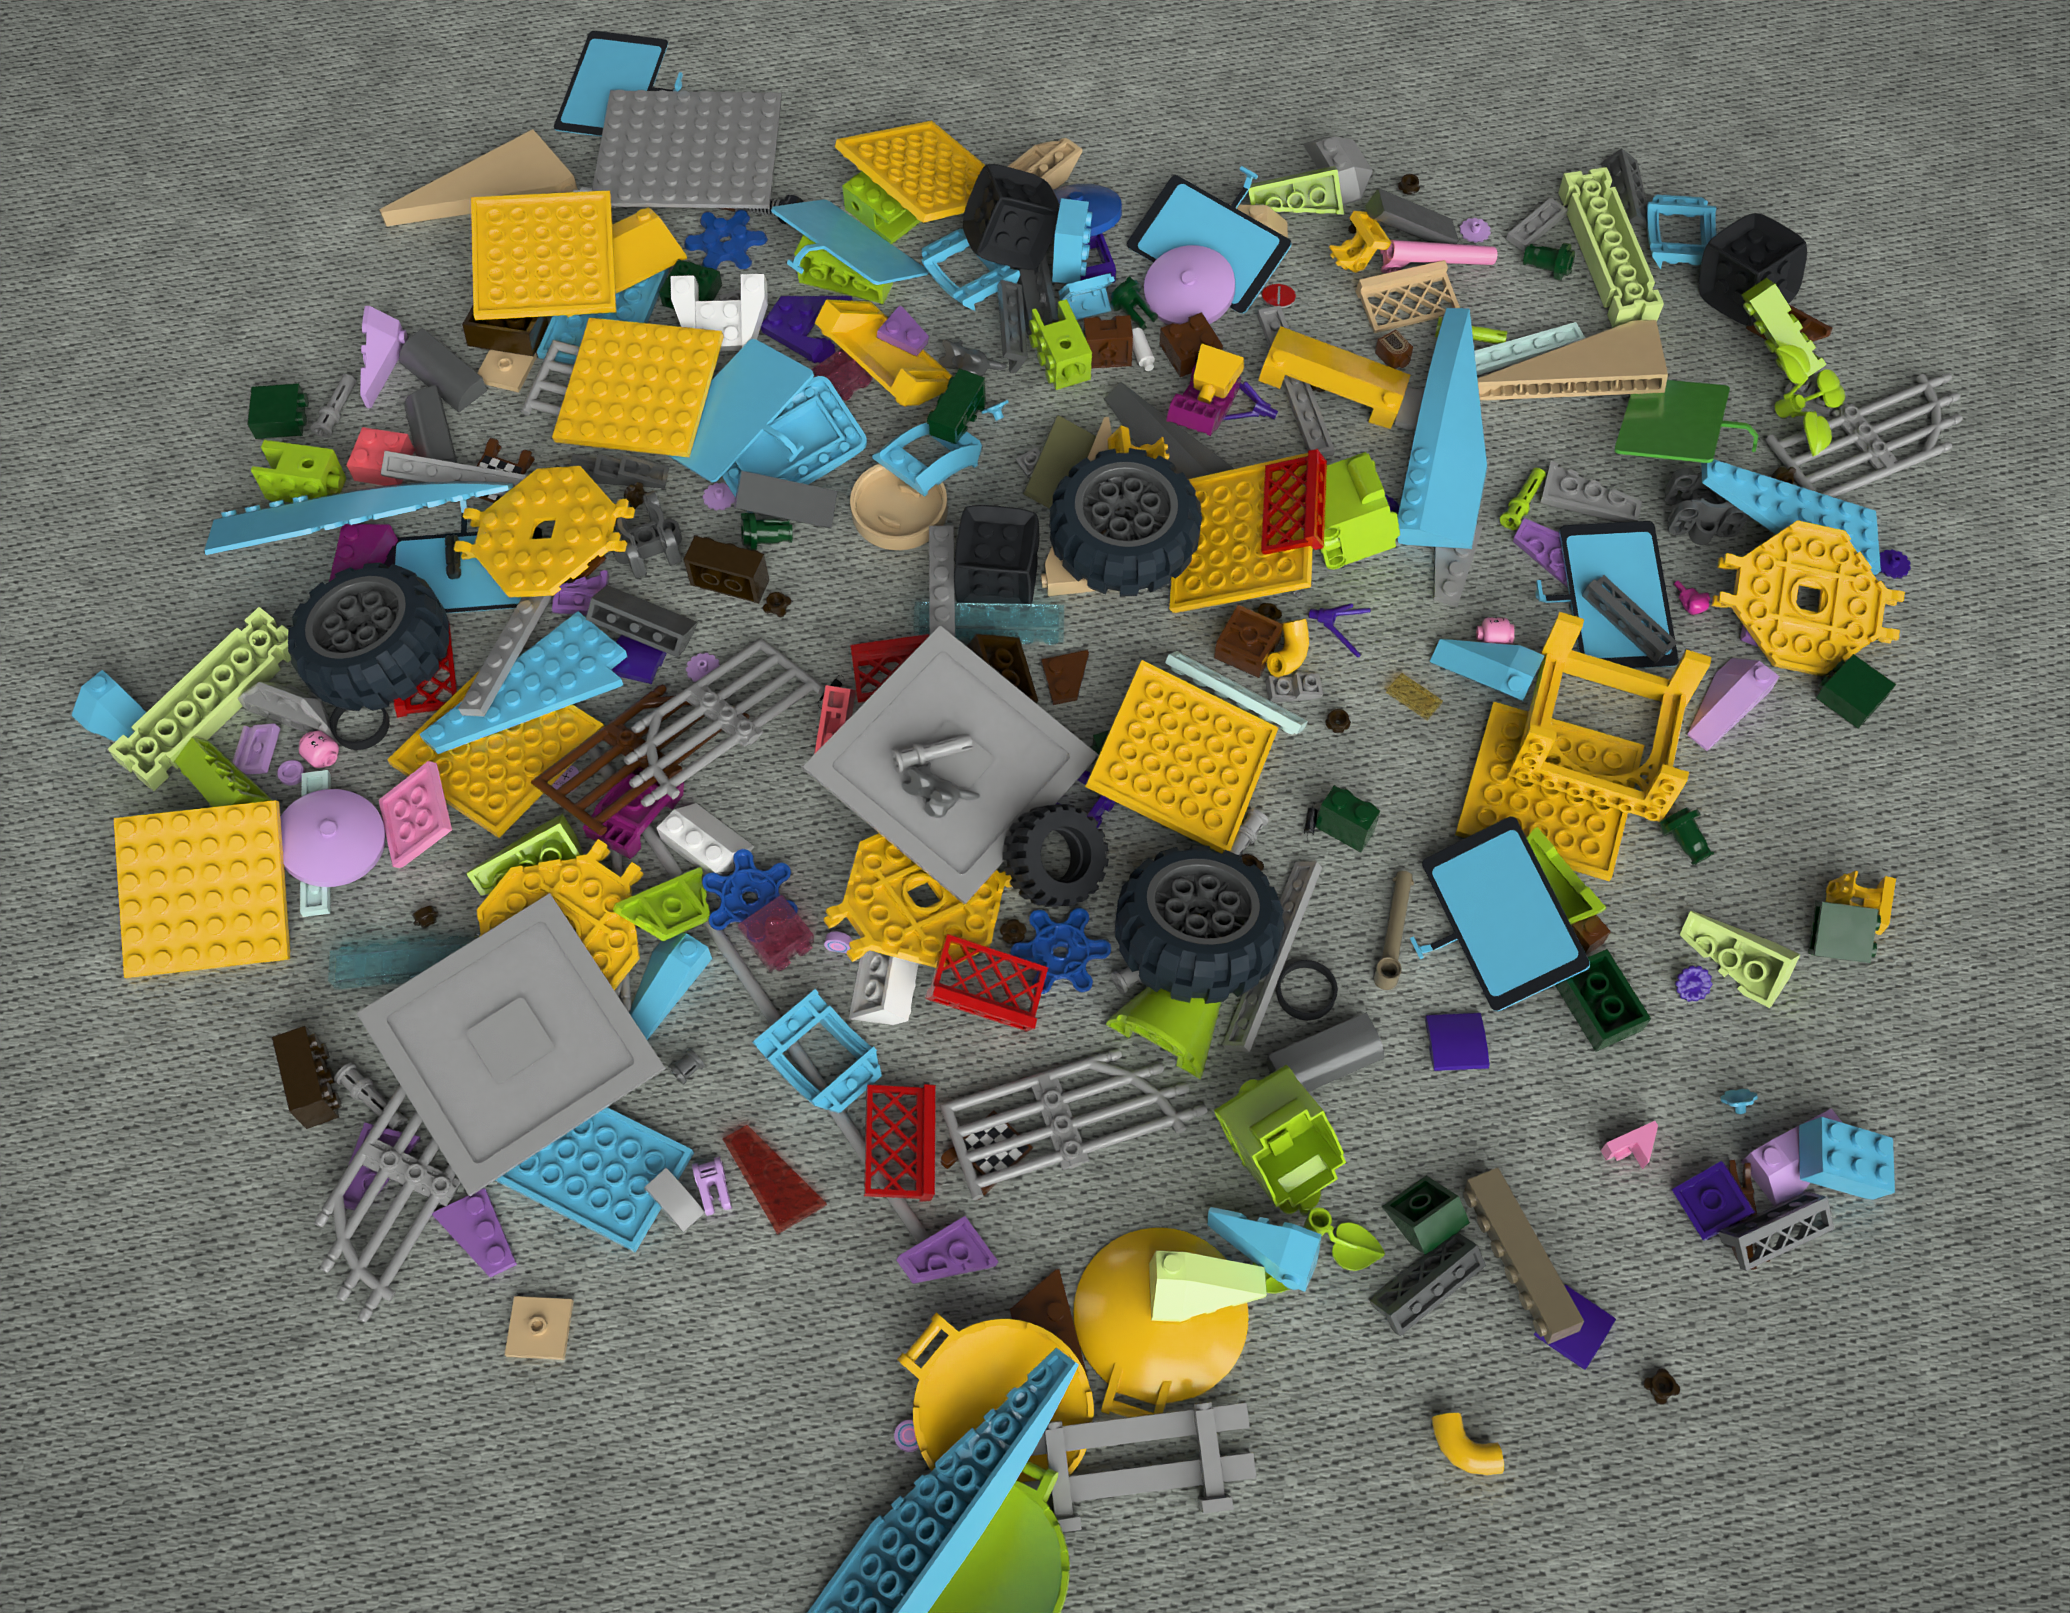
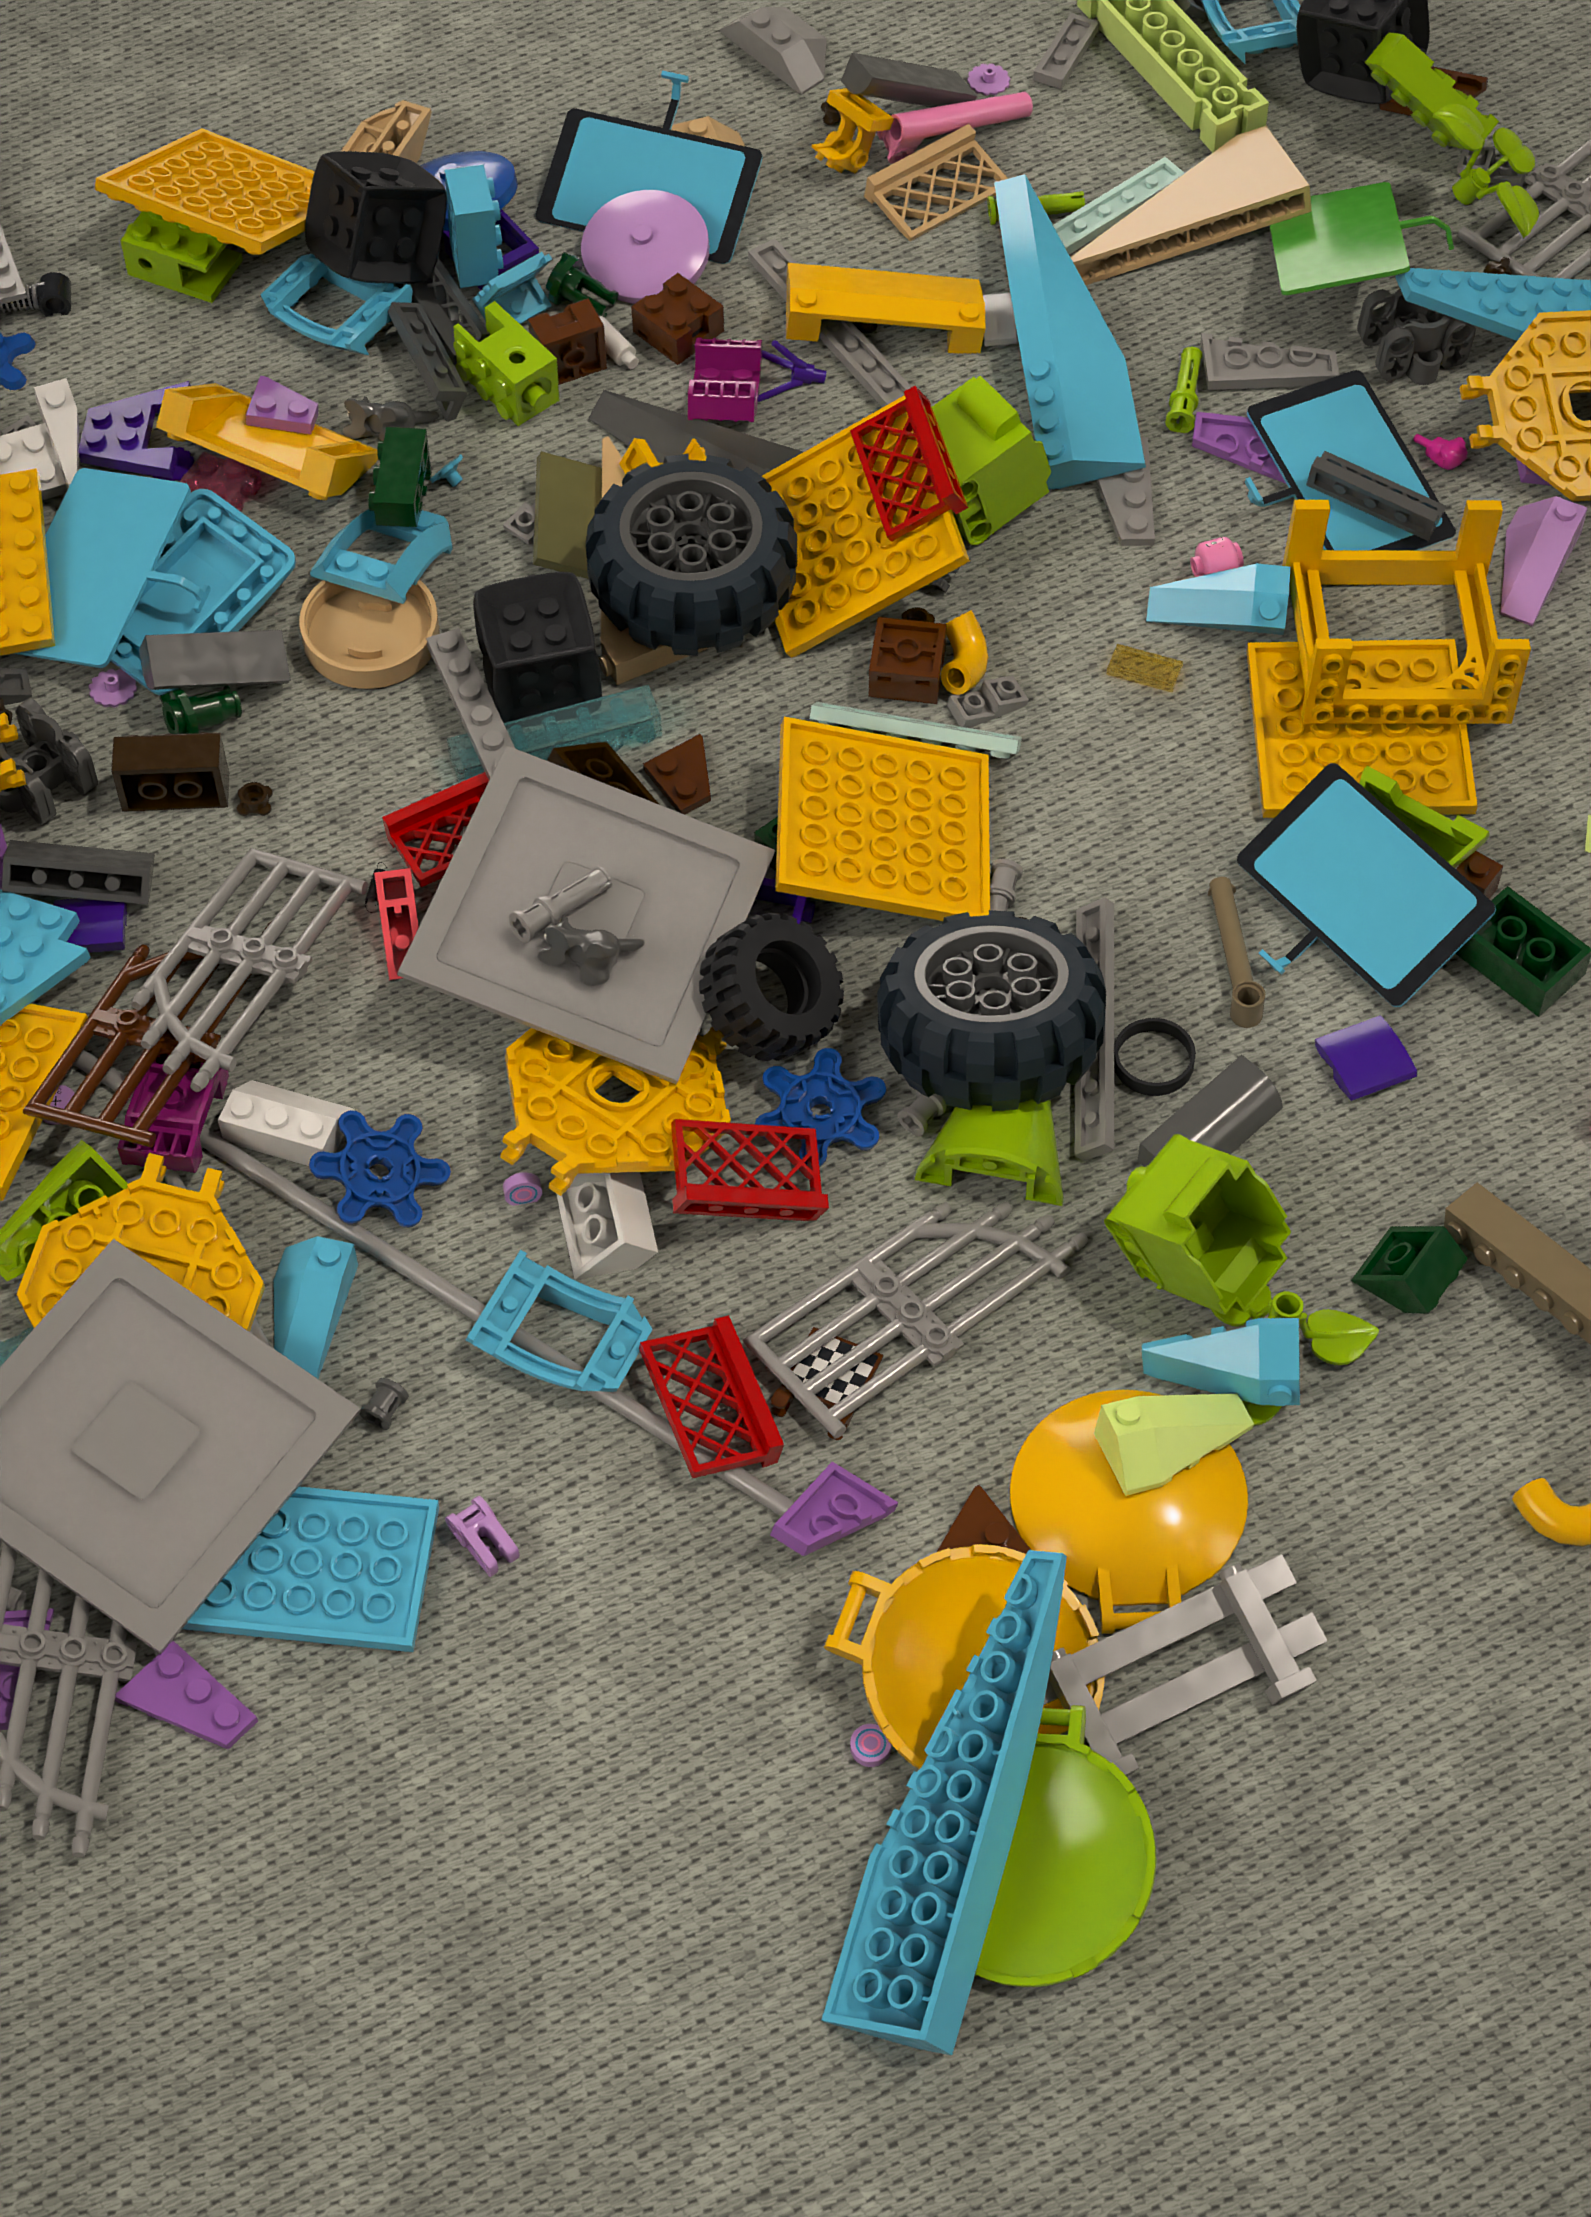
camera: 20 degrees left, 5 degrees down
(539, 1328) = (323, 1785): tan plate -> none
(668, 906) = (278, 1211): lime wing -> none
(674, 1200) = (443, 1565): light grey slope -> none
(701, 666) = (183, 908): lavender piece -> none
(774, 1183) = (563, 1508): clear red wing -> none
(777, 934) = (438, 1202): clear pink plate -> none
(830, 273) = (161, 353): lime wedge -> none
(848, 242) = (156, 310): medium azure piece -> none
(1013, 938) = (751, 1112): dark brown plate -> none
(1216, 372) = (730, 340): yellow torso -> none
(1278, 295) = (765, 227): red piece -> none
(1301, 192) = (747, 88): lime wedge -> none
(1311, 820) = (1075, 854): black piece -> none
(1329, 616) = (995, 604): dark purple plant -> none
(1338, 715) = (1060, 717): dark brown plate -> none
(1347, 818) = (1124, 833): dark green brick -> none
(1394, 350) = (946, 253): reddish brown brick -> none
(1409, 184) = (880, 44): dark brown plate -> none
(1433, 1284) = (1452, 1346): dark grey fence -> none
(1551, 259) = (1102, 88): dark green piece -> none
(1687, 833) = (1545, 724): dark green piece -> none

